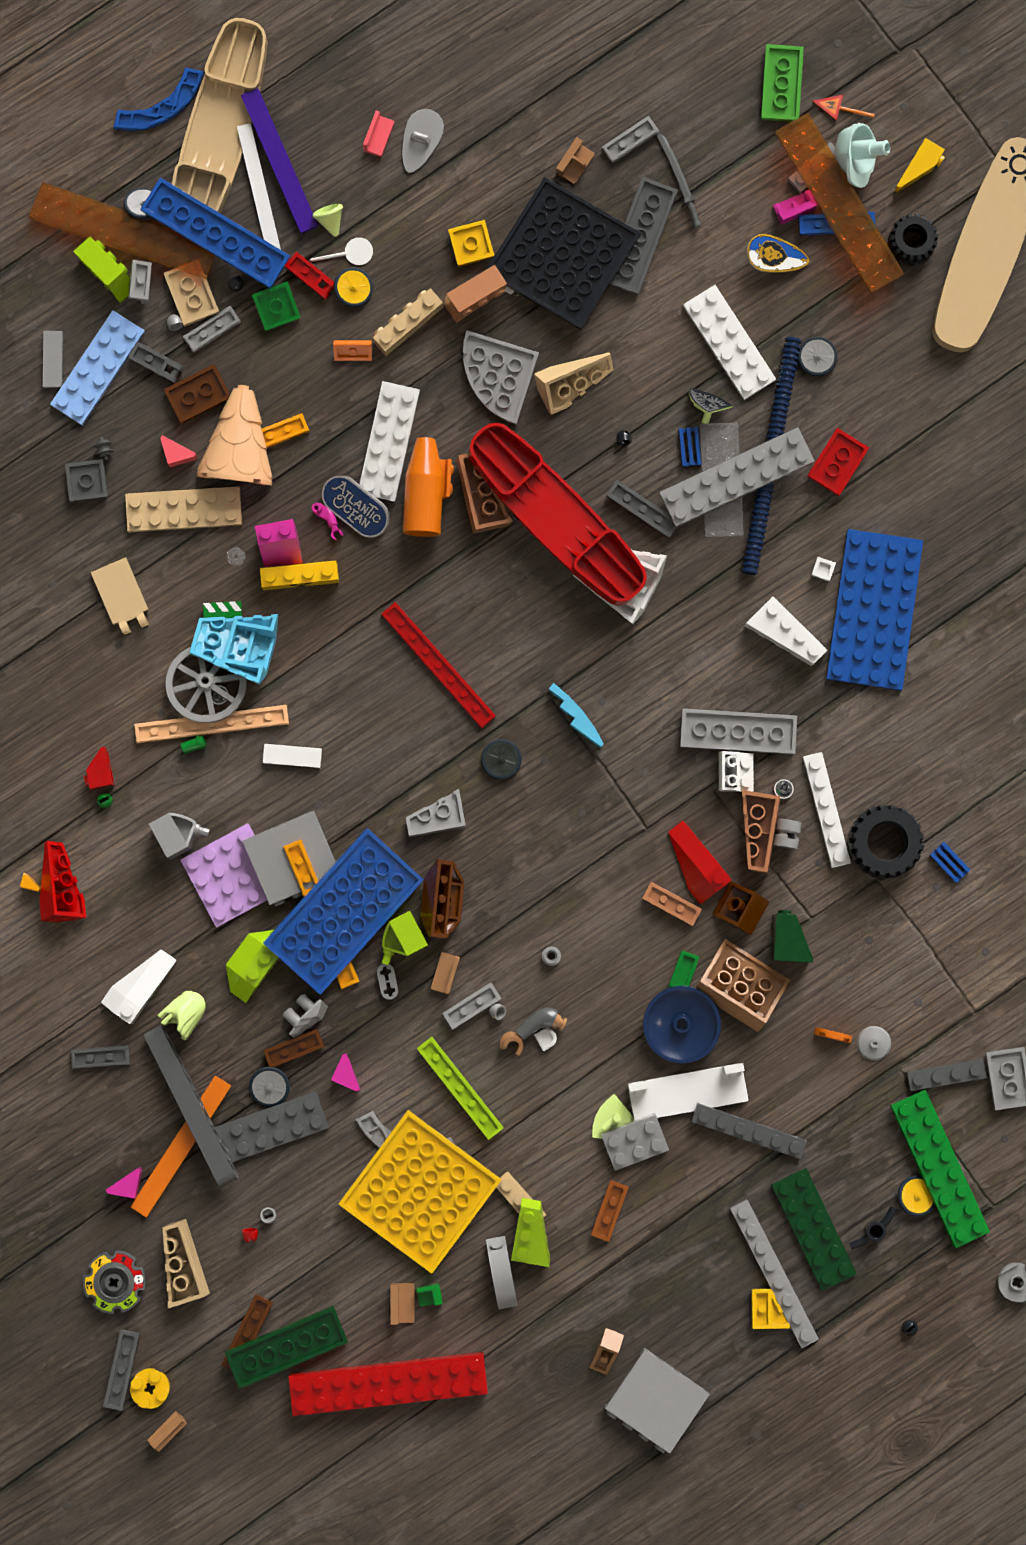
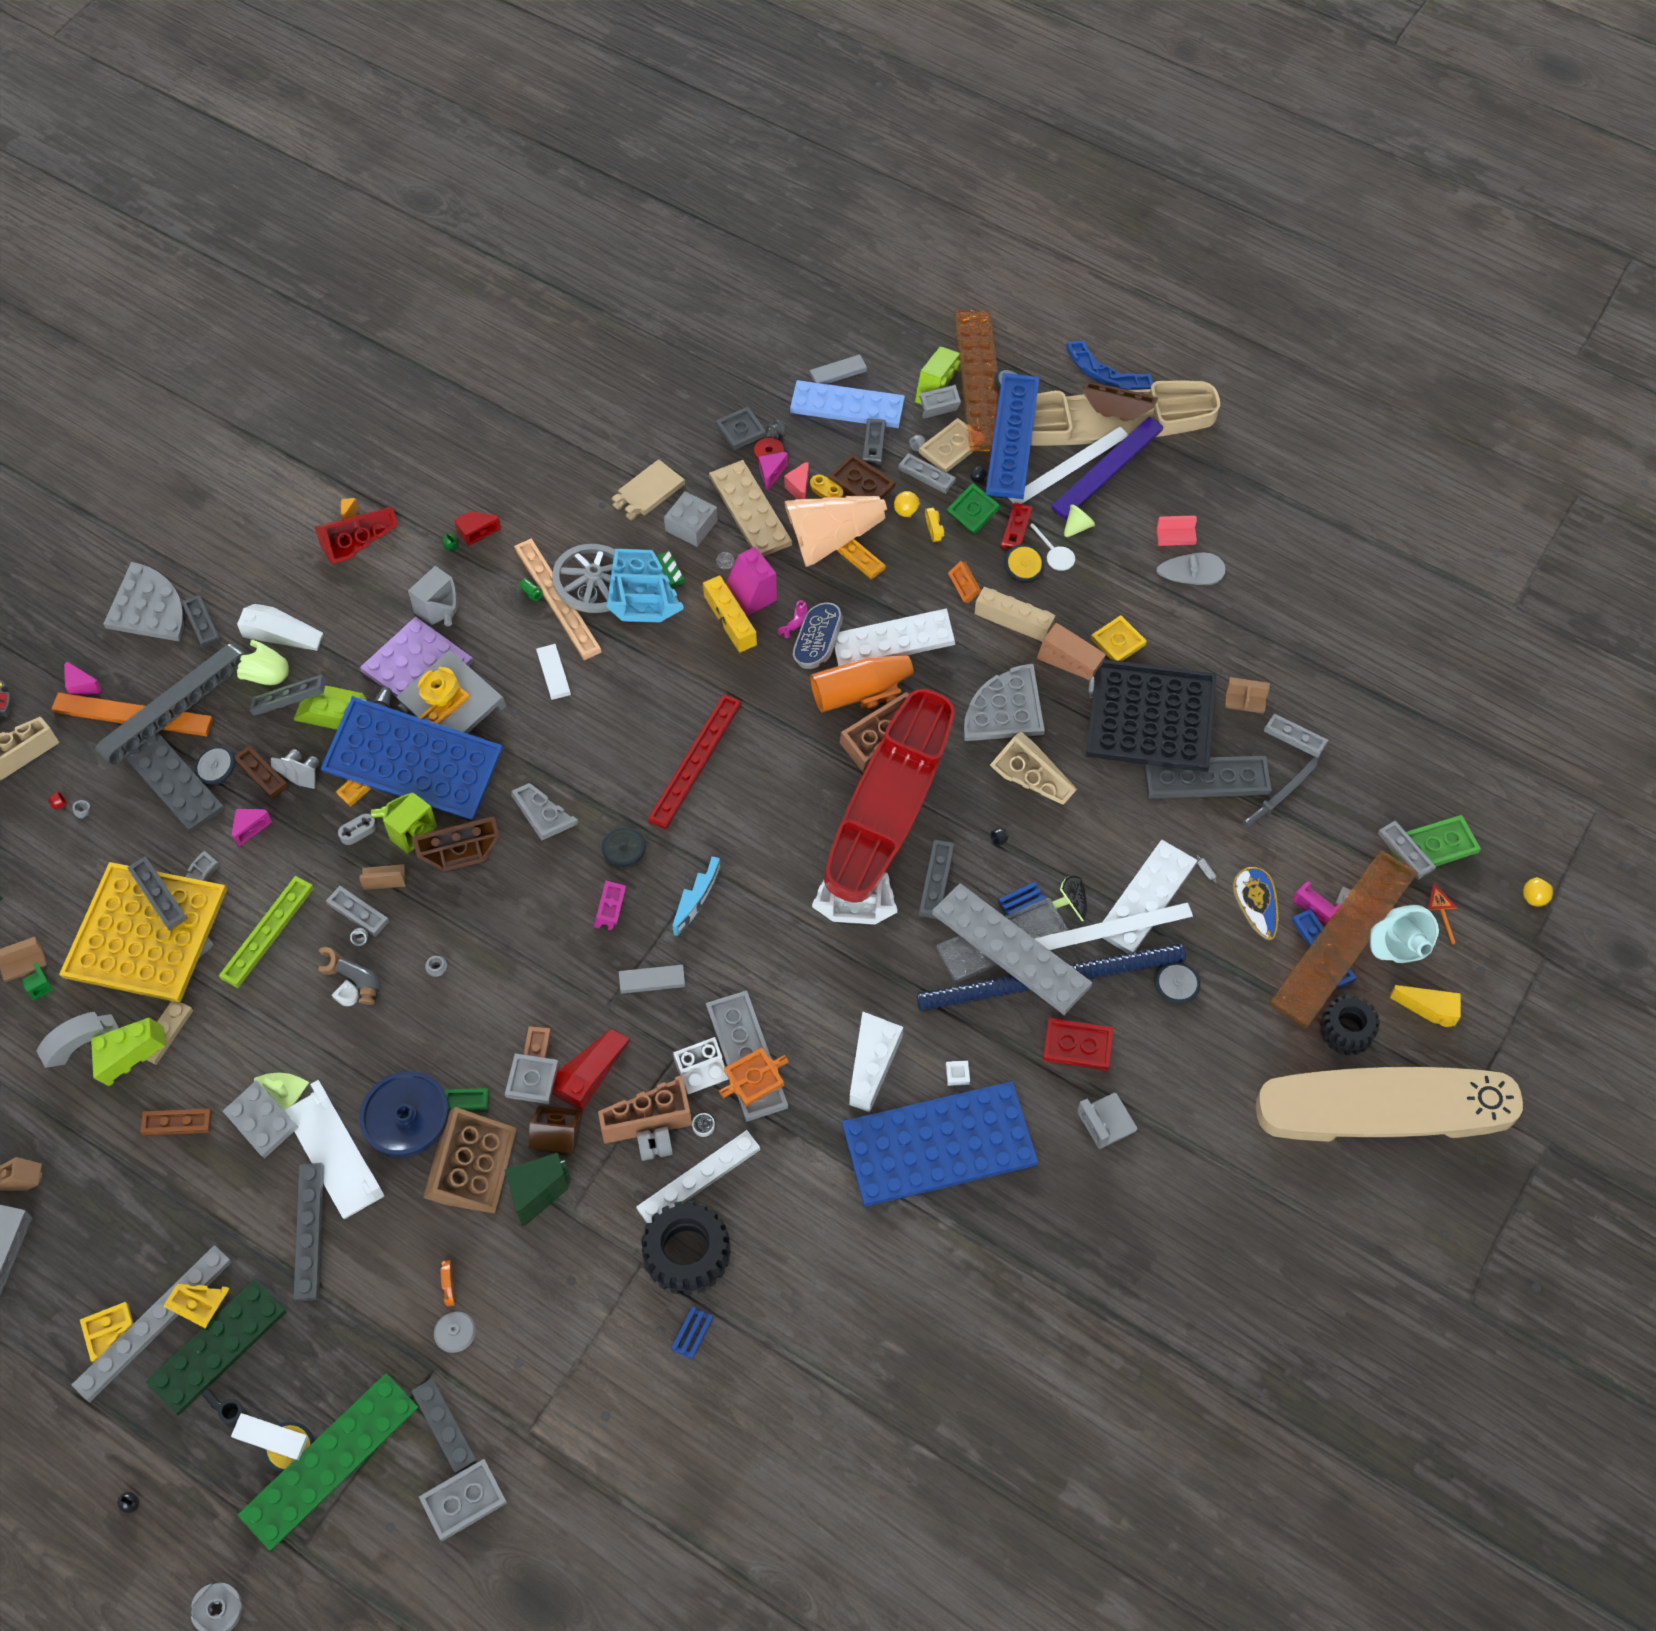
camera: 70 degrees right, 25 degrees down
(60, 1101) = (146, 605): none -> light grey plate
(119, 457) = (765, 445): none -> red piece
(147, 472) = (772, 467): none -> dark pink slope
(177, 569) = (690, 519): none -> light grey brick
(191, 431) = (825, 487): none -> yellow plate
(212, 113) = (1118, 402): none -> reddish brown wedge
(227, 1000) = (287, 695): none -> dark grey plate
(245, 364) = (906, 504): none -> yellow piece
(264, 919) = (383, 697): none -> dark grey cone
(269, 348) = (932, 520): none -> yellow plate
(271, 862) = (440, 695): none -> yellow plate
(393, 1169) = (157, 893): none -> dark grey plate
(556, 792) = (609, 904): none -> dark pink hinge
(636, 781) = (651, 979): none -> light grey tile
(694, 911) = (531, 1078): none -> light grey plate
(724, 280) = (1206, 869): none -> white piece
(749, 384) = (1115, 926): none -> white sticker
(765, 733) = (753, 1077): none -> orange plate
(776, 1234) = (196, 1302): none -> yellow wing
(780, 108) = (1406, 849): none -> light grey tile
(861, 23) = (1537, 892): none -> yellow piece
(908, 1207) = (269, 1436): none -> white tile
(911, 470) = (1106, 1120): none -> light grey bracket

